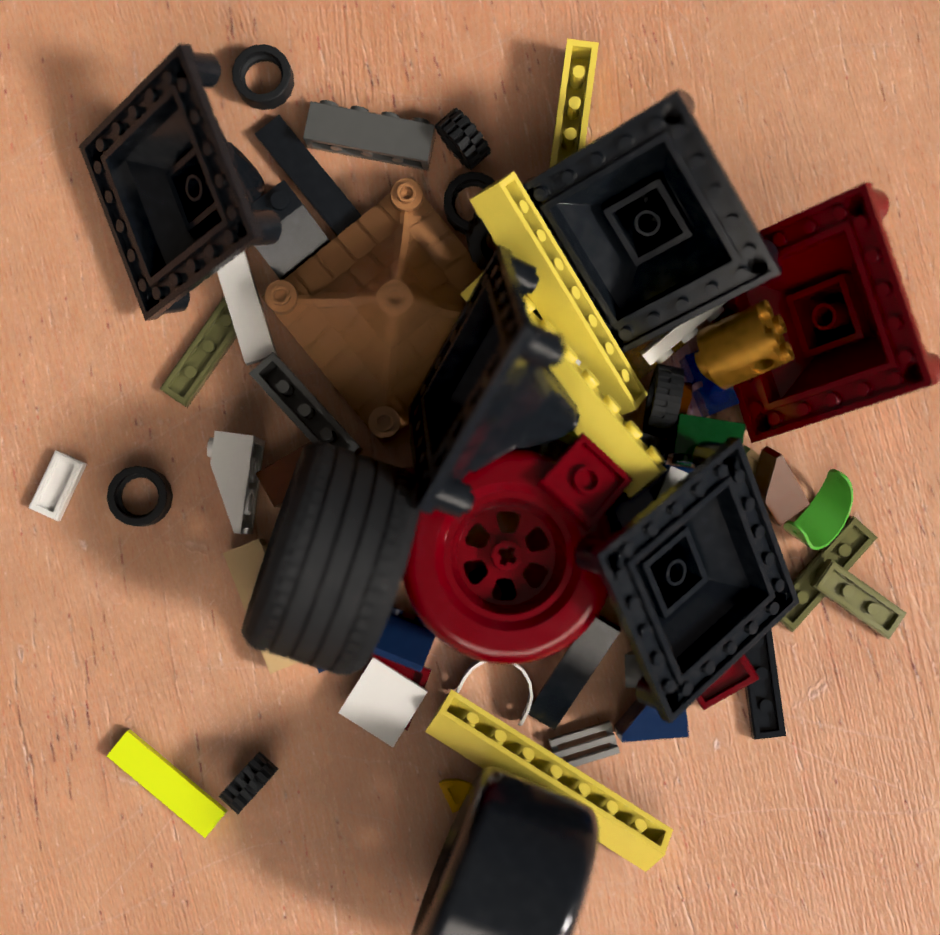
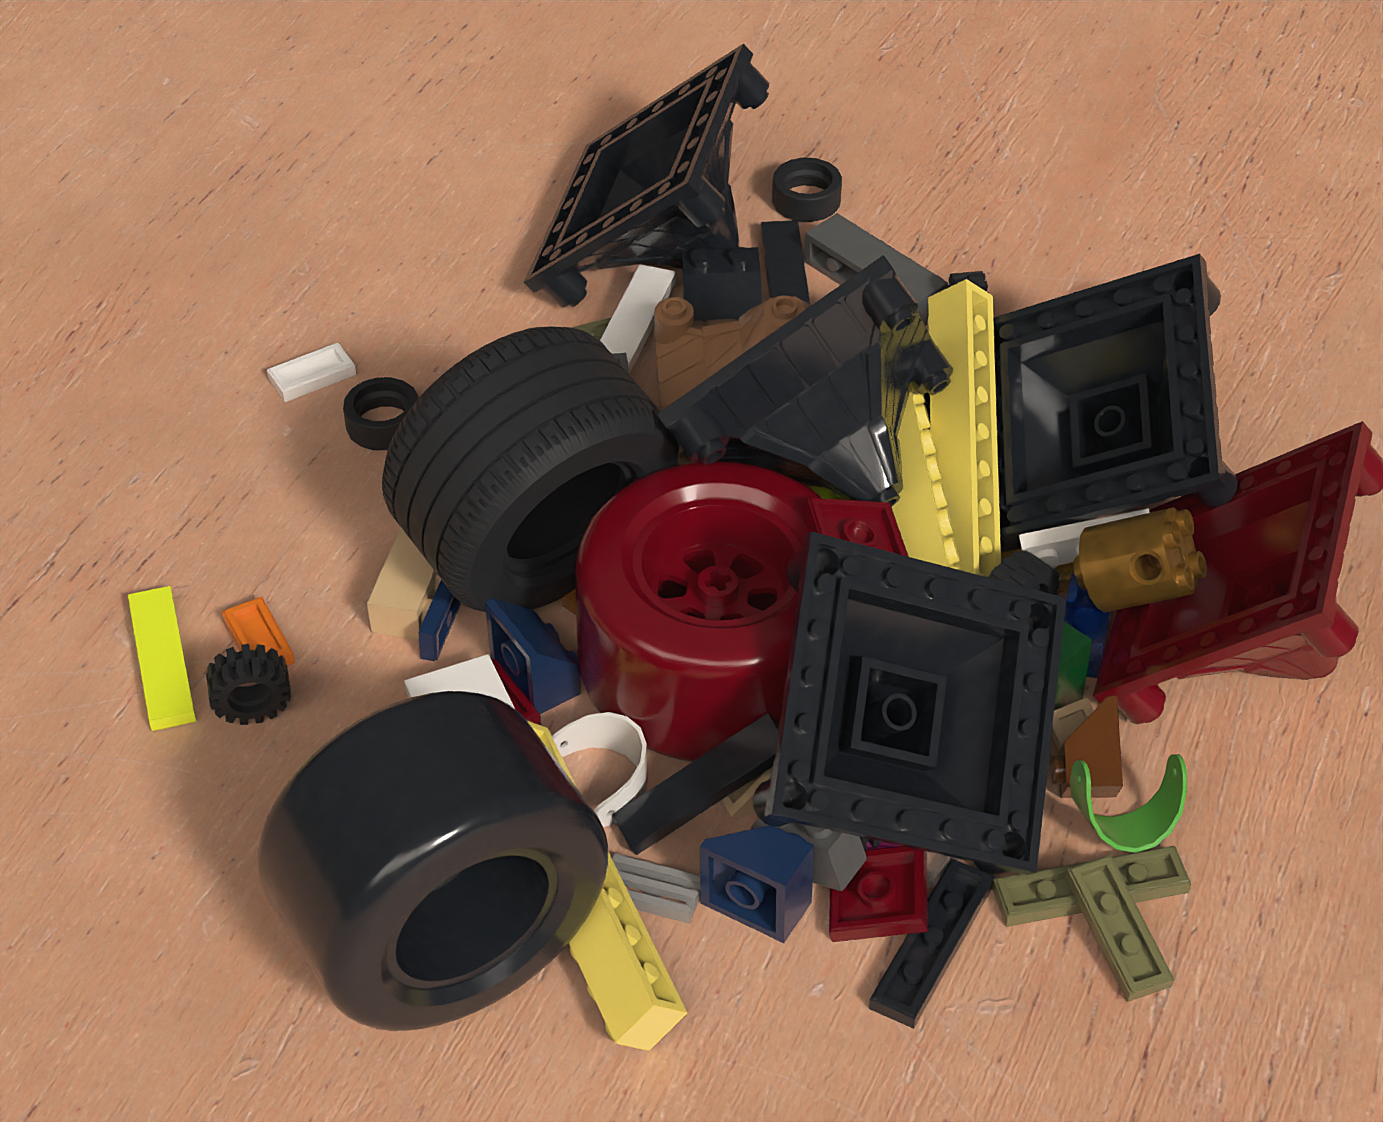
camera: 30 degrees right, 40 degrees down
(212, 726) = (254, 625): none -> orange tile

